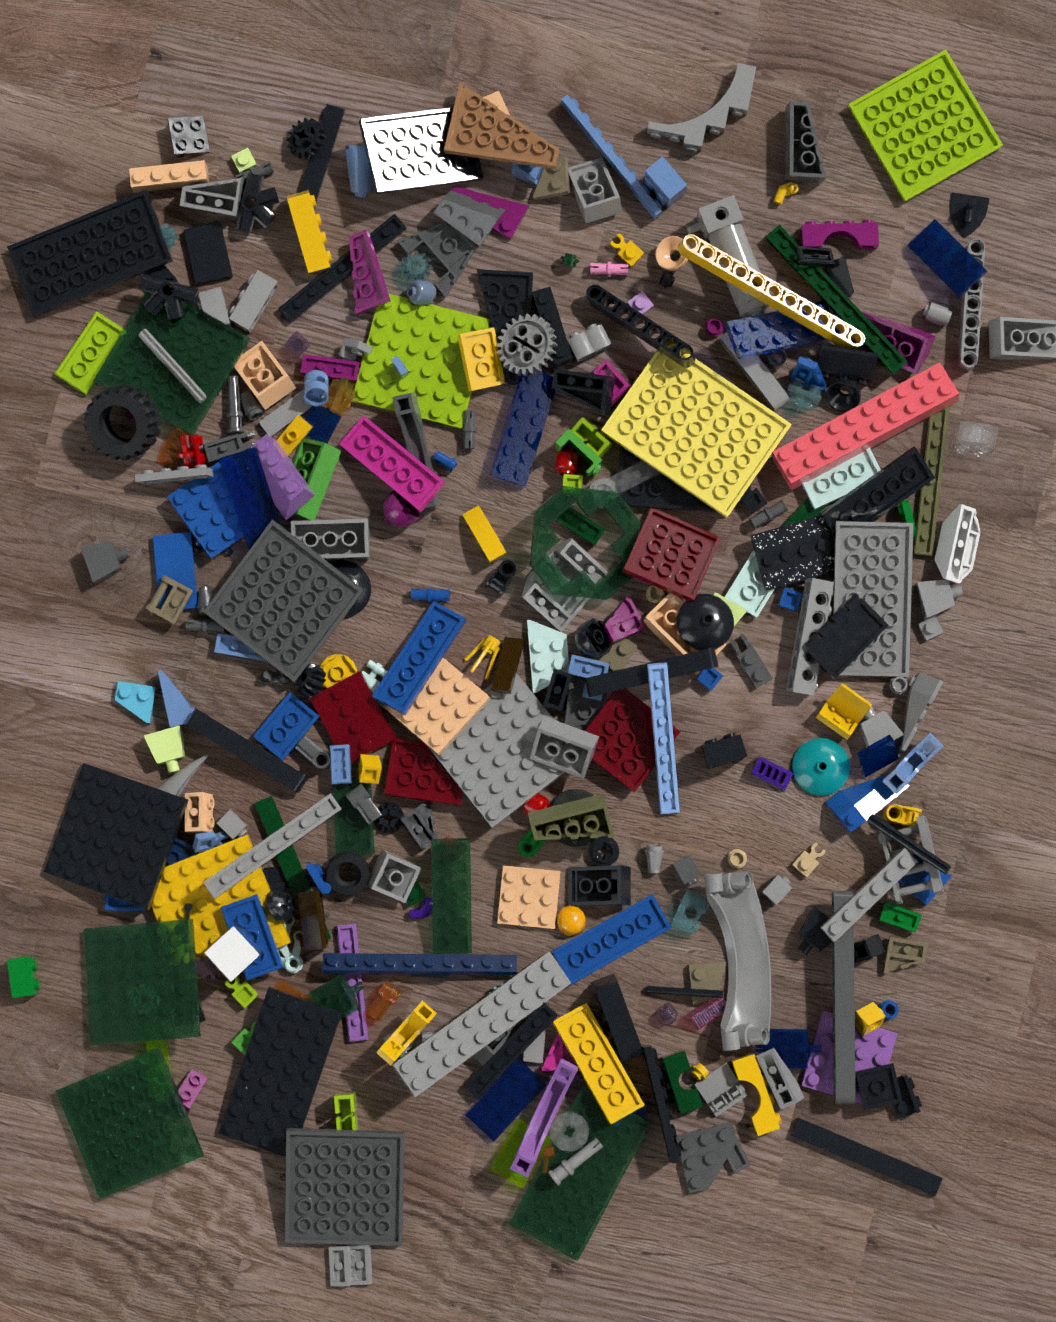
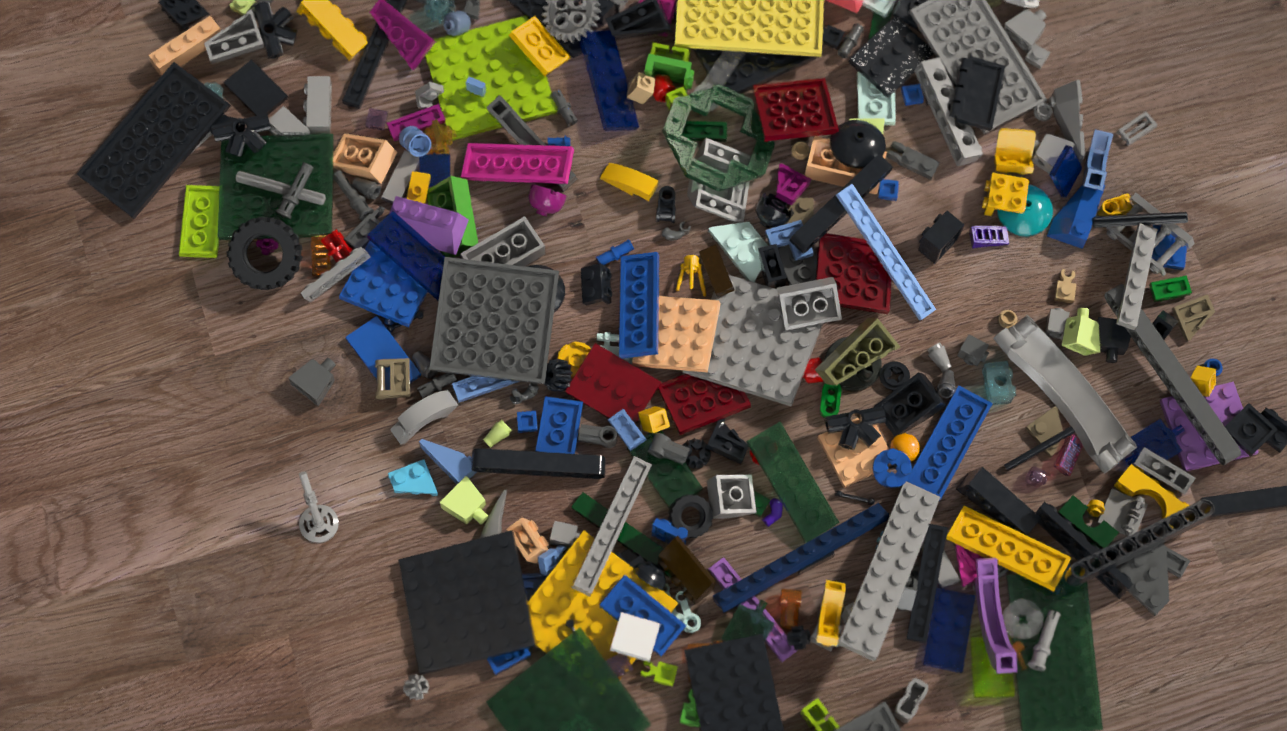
camera: 35 degrees left, 15 degrees down
(33, 882) = (416, 687): none -> light grey gear
(36, 686) = (316, 518): none -> light grey dish
(171, 382) = (293, 200): none -> dark grey pin
(177, 648) = (421, 413): none -> light grey arch
(231, 700) = (497, 433): none -> yellowish green cone
(262, 705) = (527, 421): none -> blue plate
(372, 1032) = (798, 637): none -> black gear
(396, 614) = (596, 284): none -> black bracket
(438, 1138) = (910, 701): none -> light grey brick
(493, 608) = (675, 235): none -> dark grey arm
(512, 949) = (870, 501): none -> black hinge
(542, 886) = (853, 431): none -> black piece
(546, 453) = (640, 88): none -> tan brick
(553, 941) = (892, 479): none -> blue plate
(642, 887) = (946, 385): none -> flat silver cone
(717, 1130) = (1134, 548): none -> black beam
(790, 913) = (1082, 333): none -> yellowish green torso
(809, 745) = (1005, 194): none -> yellow bracket
(958, 751) = (1121, 131): none -> light grey tile

